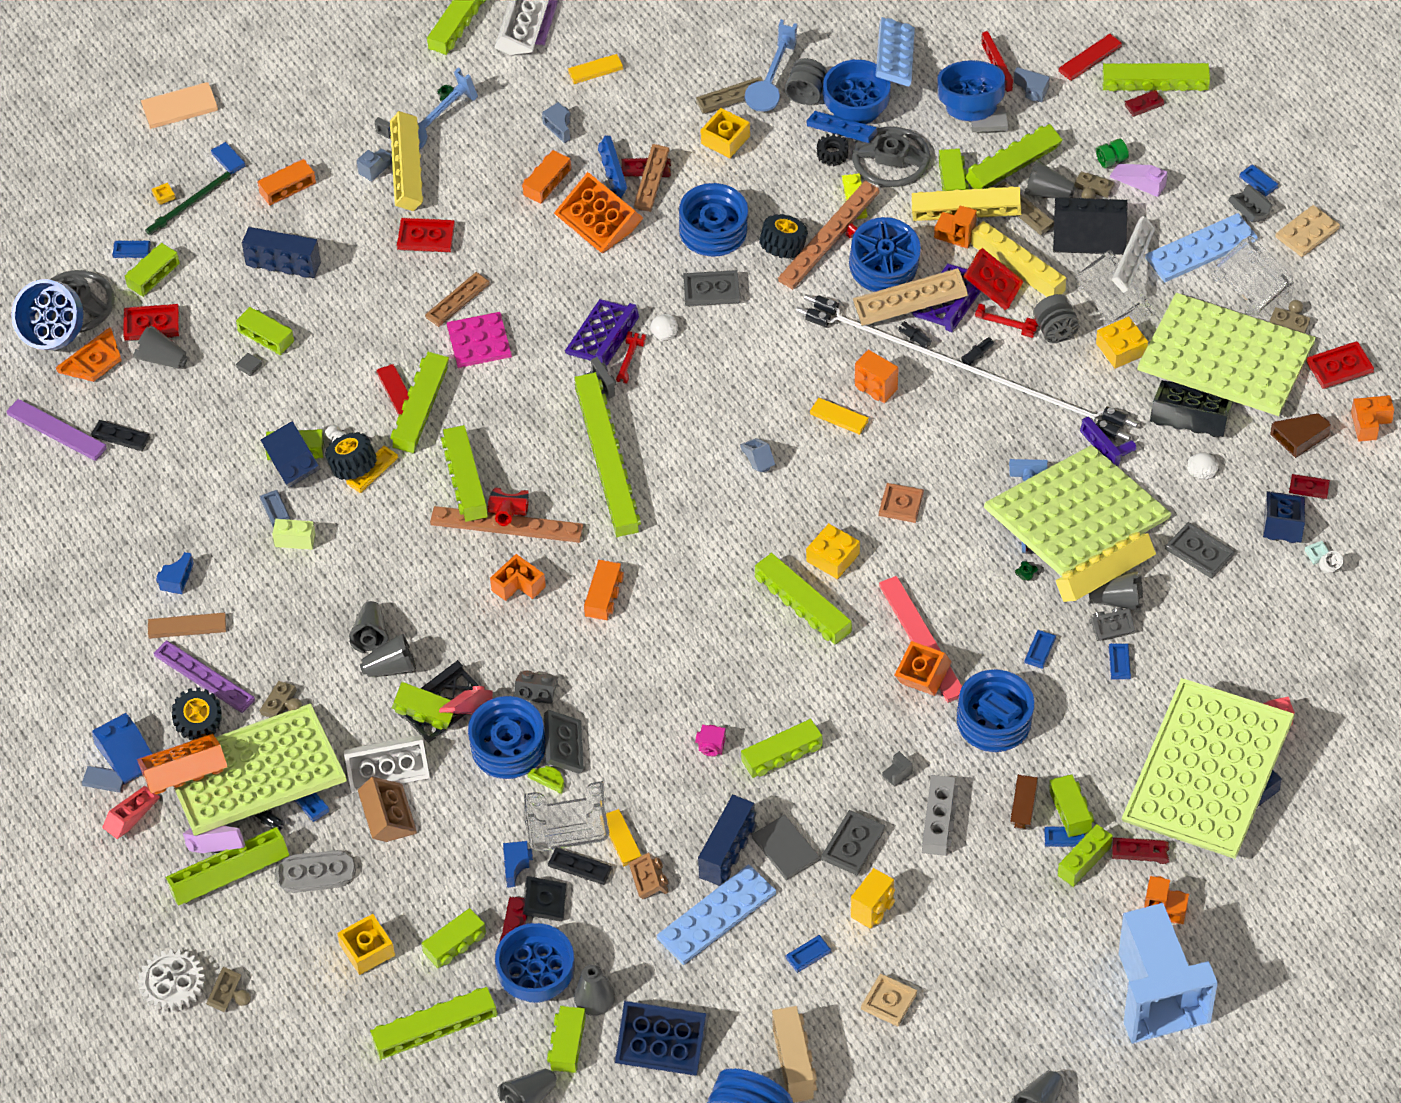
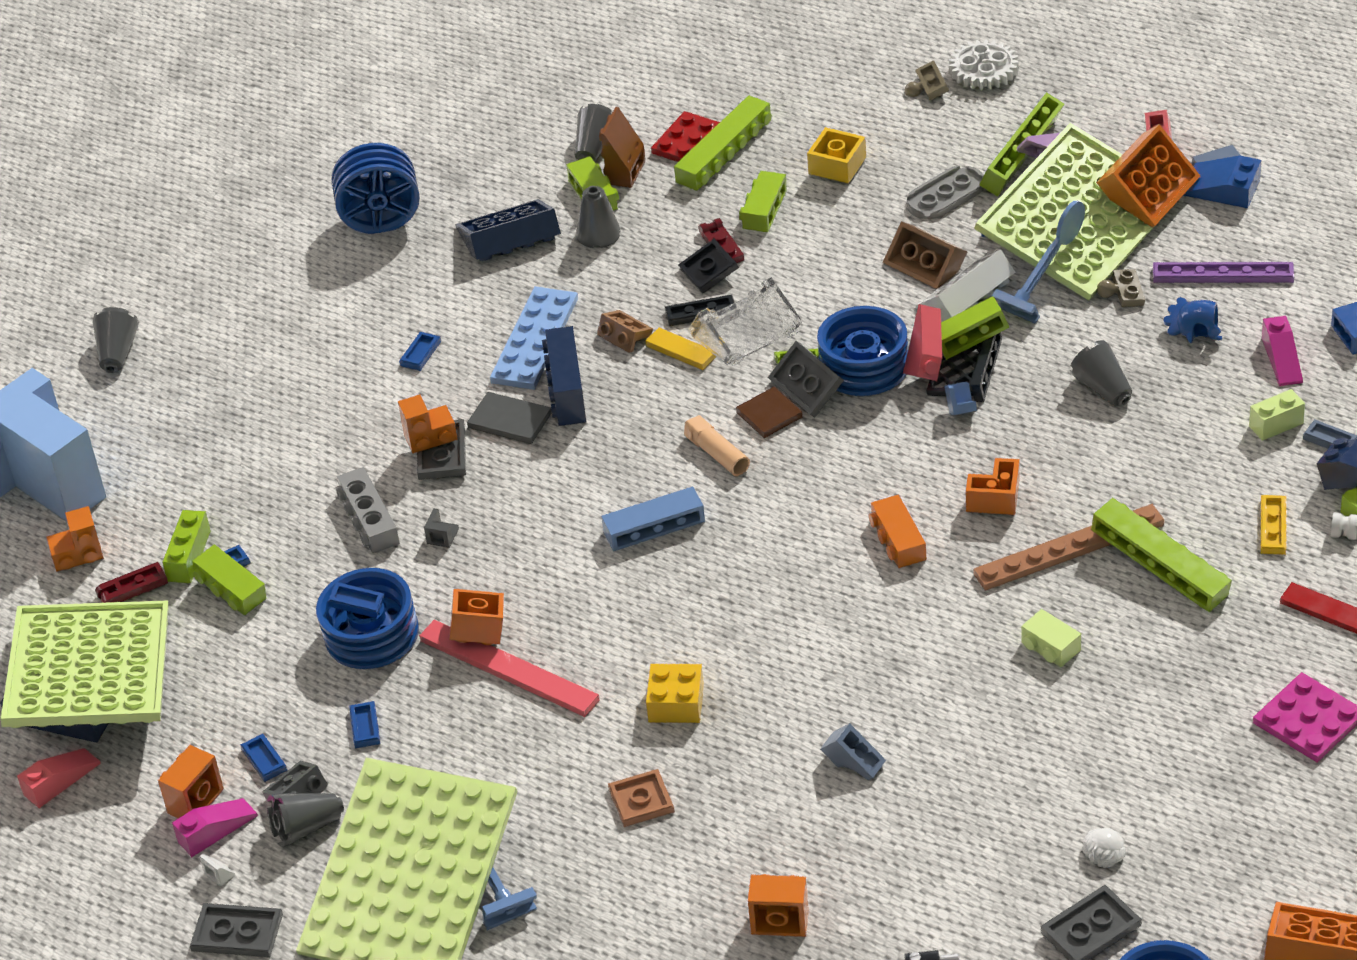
camera: 150 degrees right, 10 degrees down
(186, 625) = (1292, 298): medium nougat tile -> none
(196, 713) = (1184, 224): black wheel -> none
(237, 584) = (1281, 350): none -> dark pink slope
(268, 634) = (1193, 319): none -> blue piece
(289, 730) = (1067, 230): none -> medium blue piece
(351, 456) = (1300, 504): black wheel -> none
(389, 658) = (1047, 361): dark grey cone -> none
(420, 402) = (1294, 606): lime brick -> none
(453, 1056) = (682, 136): none -> red plate
(478, 663) = (959, 398): none -> medium blue panel
(507, 505) = (1079, 546): red connector -> none
(516, 860) = (761, 270): blue arch -> none
(526, 1046) = (621, 150): none -> dark orange slope
(531, 942) = (663, 202): blue wheel -> none
(535, 686) = (885, 419): dark grey bracket -> none
(578, 462) = (1051, 638): none -> yellowish green brick
(602, 373) = (1112, 735): dark grey bracket -> none
(604, 742) = (769, 412): none -> reddish brown tile
(606, 454) = (1028, 659): lime brick -> none
(615, 335) = (1150, 805): dark purple fence -> none
(634, 342) = (1096, 760): red hinge -> none
(664, 728) = (706, 437): none -> light nougat piece
(711, 740) = (658, 459): dark pink brick -> none
(750, 692) = (653, 518): none -> medium blue brick
(781, 748) = (578, 487): lime brick -> none
(794, 1053) = (370, 258): tan brick -> none
(803, 599) = (671, 632): lime brick -> none
(839, 416) = (795, 857): yellow tile -> none
(857, 845) = (425, 427): none -> orange brick
(872, 898) = (380, 400): yellow brick -> none
(889, 1000) = (312, 349): tan plate -> none
(1024, 801) = (284, 564): reddish brown slope -> none
(1105, 567) = (327, 813): light yellow brick -> none
(1181, 623) = (210, 824): none -> dark pink slope
(1181, 647) = (190, 782): none -> orange brick
(1191, 593) = (216, 870): none -> white slope

